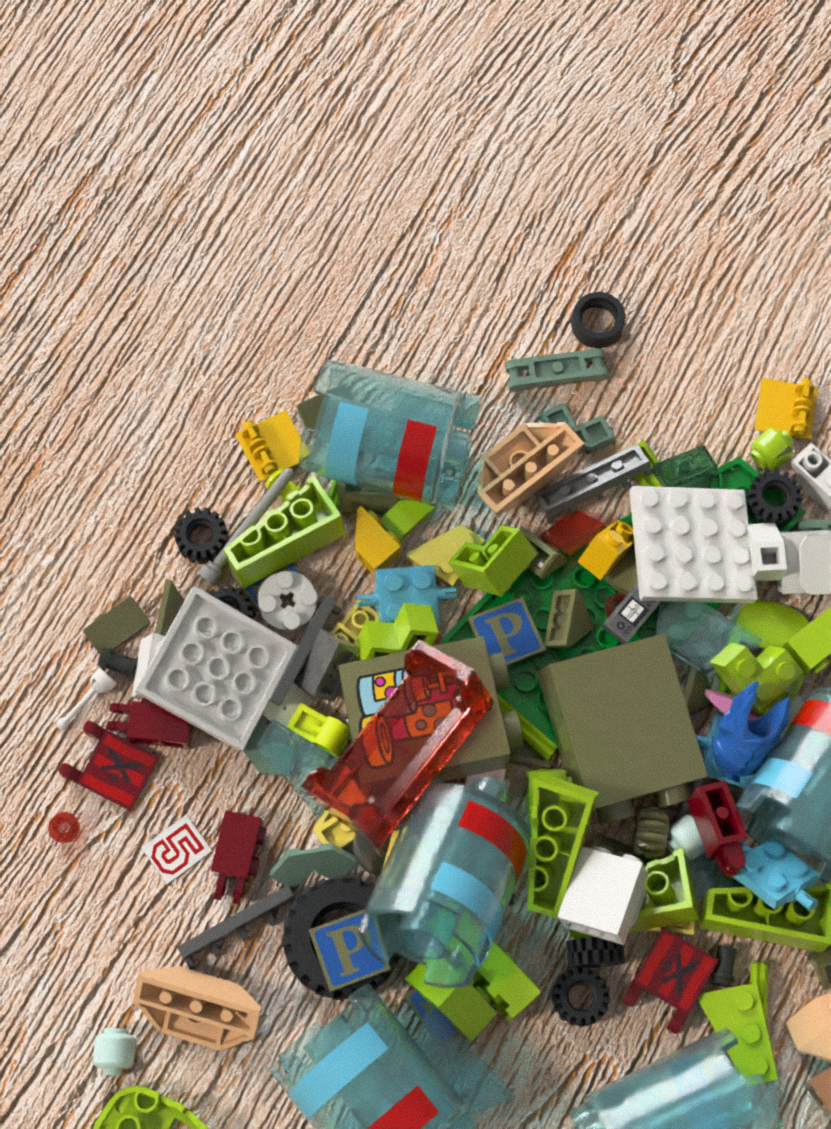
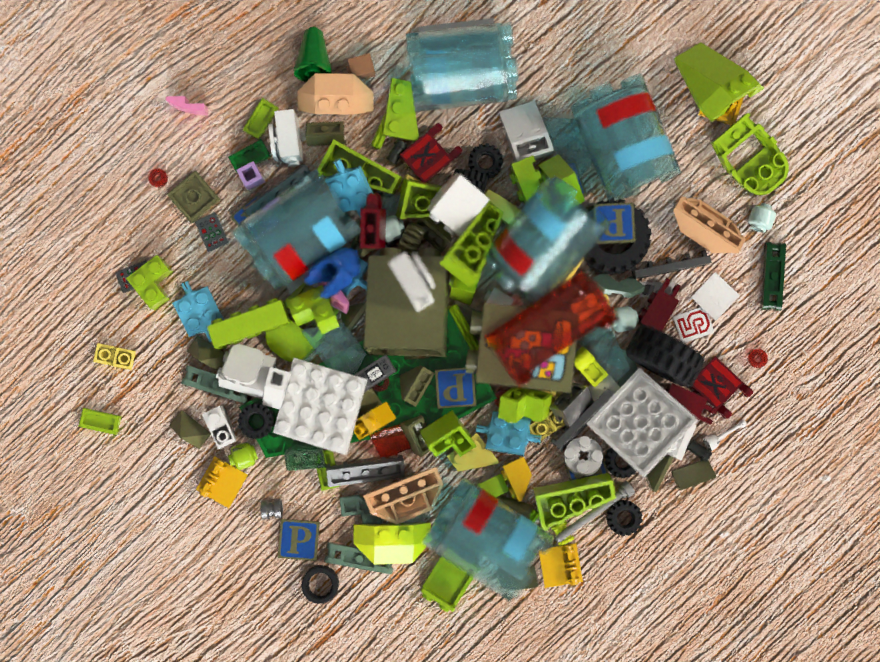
camera: 160 degrees left, 15 degrees up
(72, 963) = (773, 276): none -> dark green plate
(154, 903) = (715, 296): none -> white sticker
(210, 770) = (665, 355): none -> black tyre
(258, 884) = (654, 286): none -> white sticker
(287, 818) = (627, 319): none -> light aqua head
(428, 361) = (445, 585): none -> lime panel
(522, 397) = (391, 542): none -> neon yellow wedge
(533, 929) = (504, 205): none -> light yellow slope
(534, 1065) = (526, 132): none -> white slope
(630, 748) = (413, 279): none -> white brick
(649, 368) = (298, 539): none -> tile
(706, 392) = (269, 509): none -> flat silver wheel

